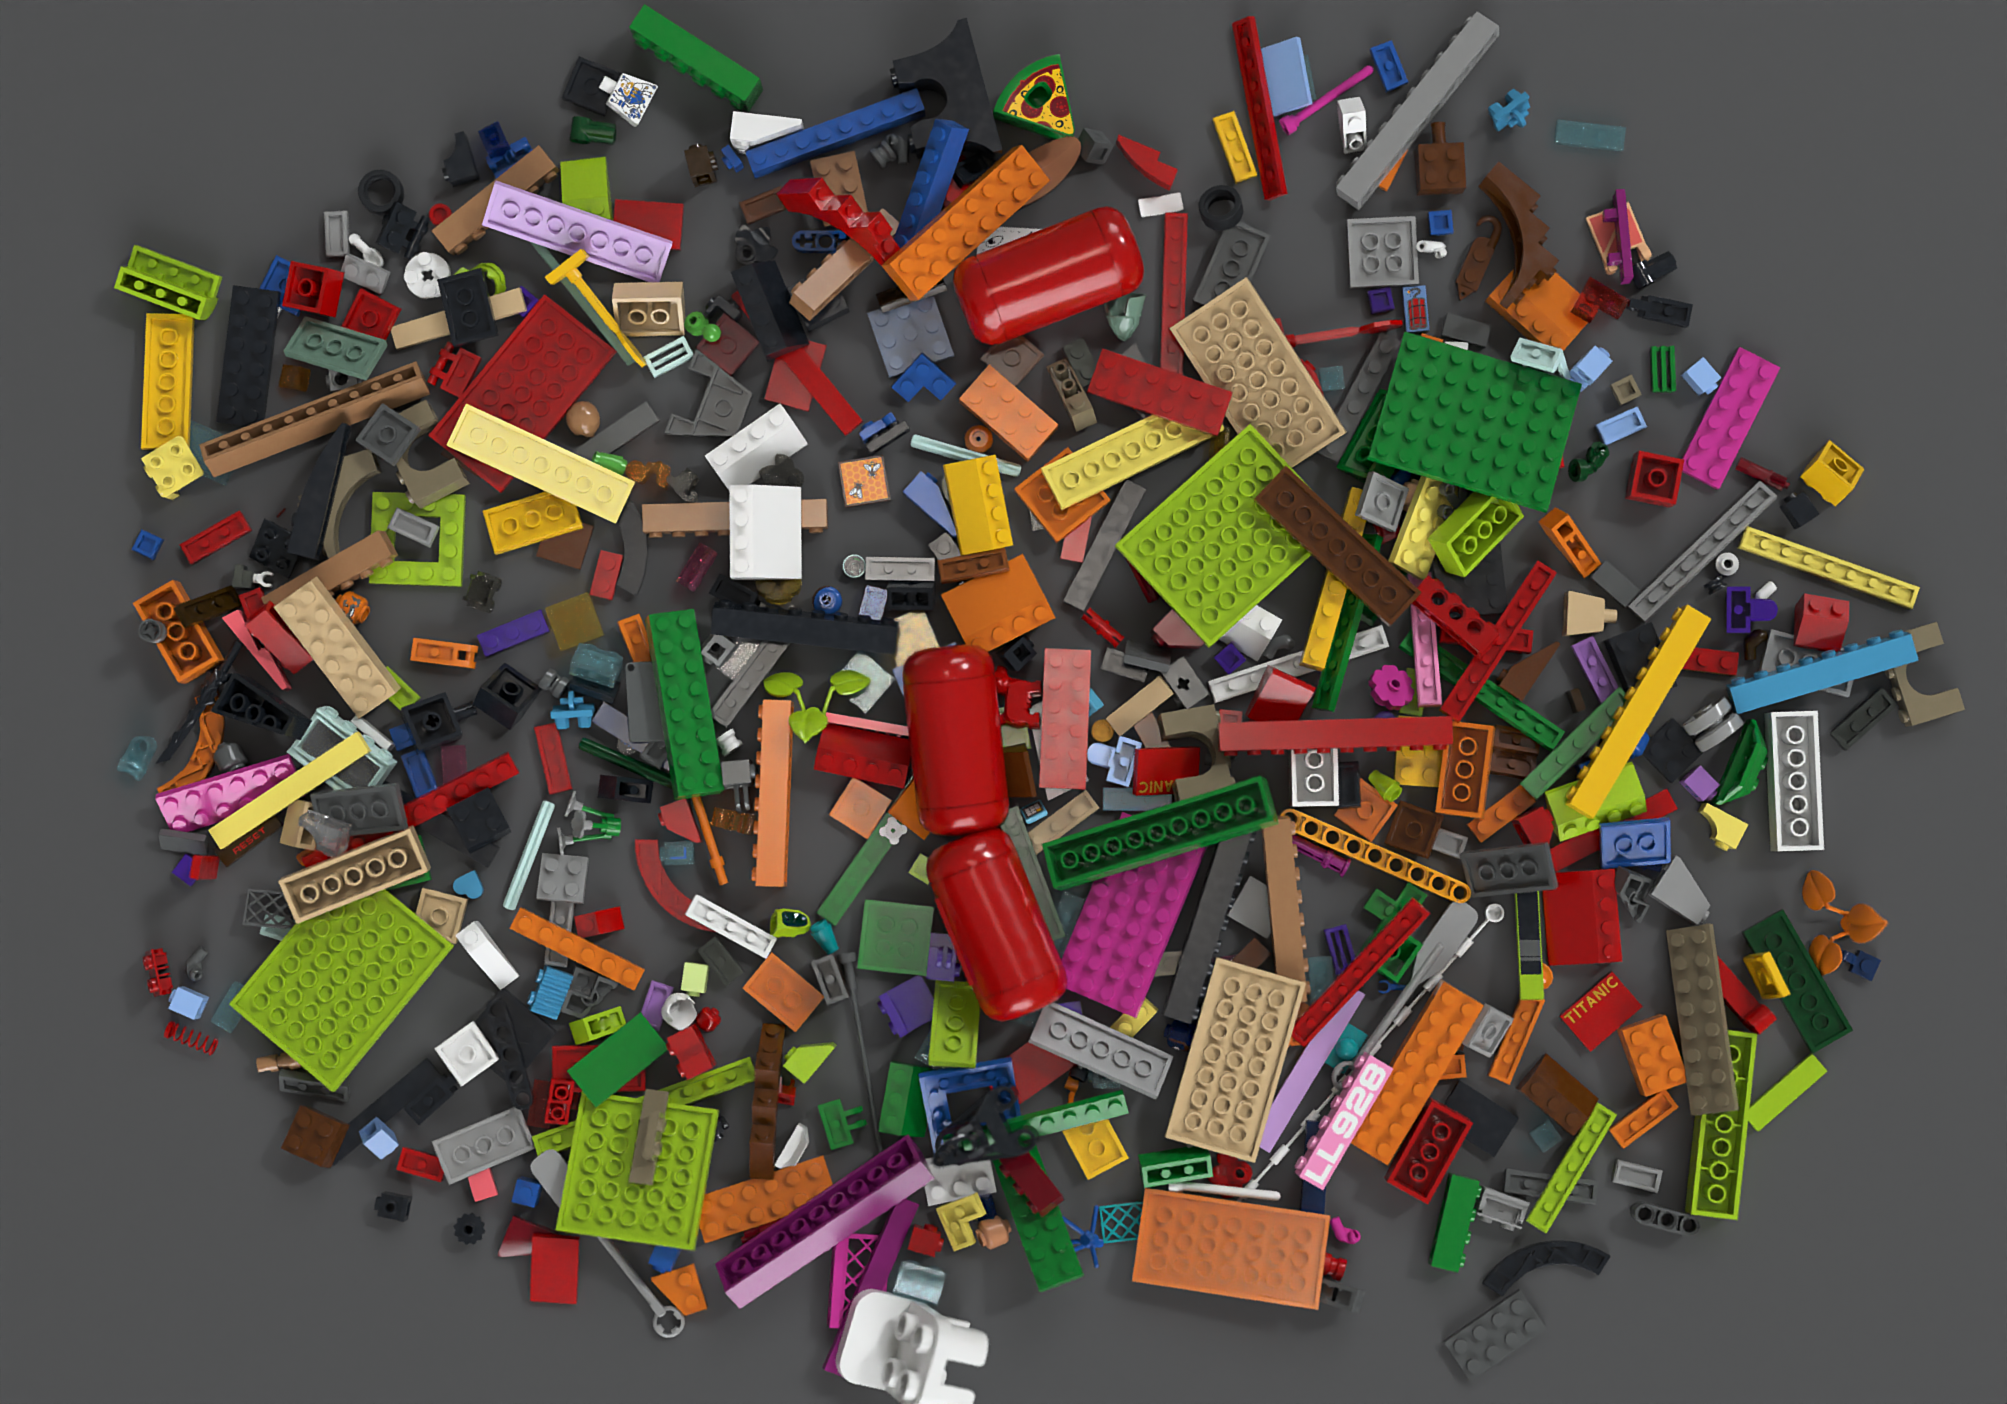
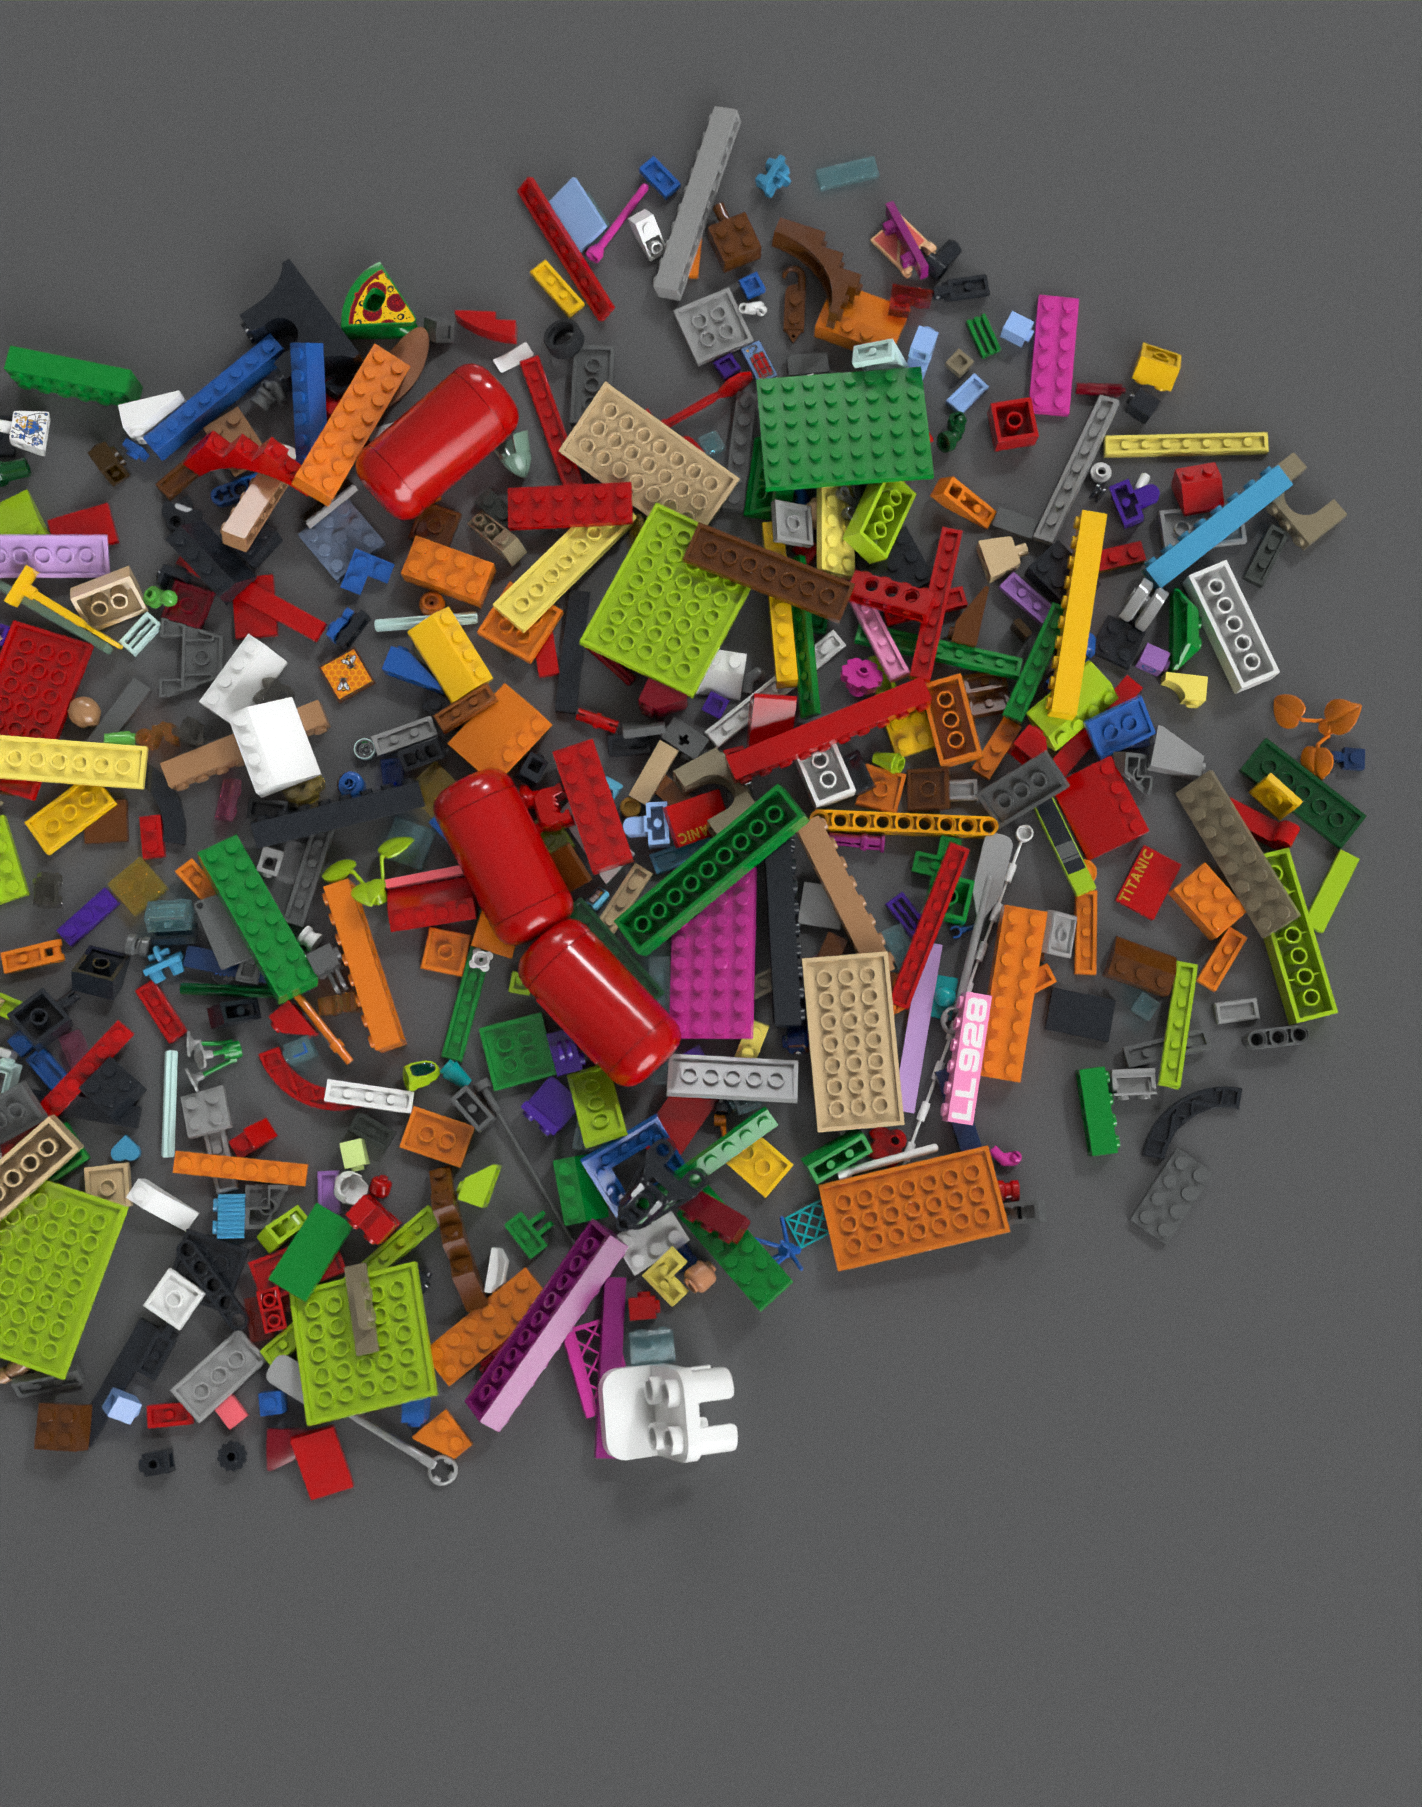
camera: 20 degrees left, 5 degrees down
(787, 1093) = (472, 1224): red tile -> none
(1428, 1150) = (1050, 1056): red brick -> none
(1752, 641) = (1148, 527): dark brown arm -> none

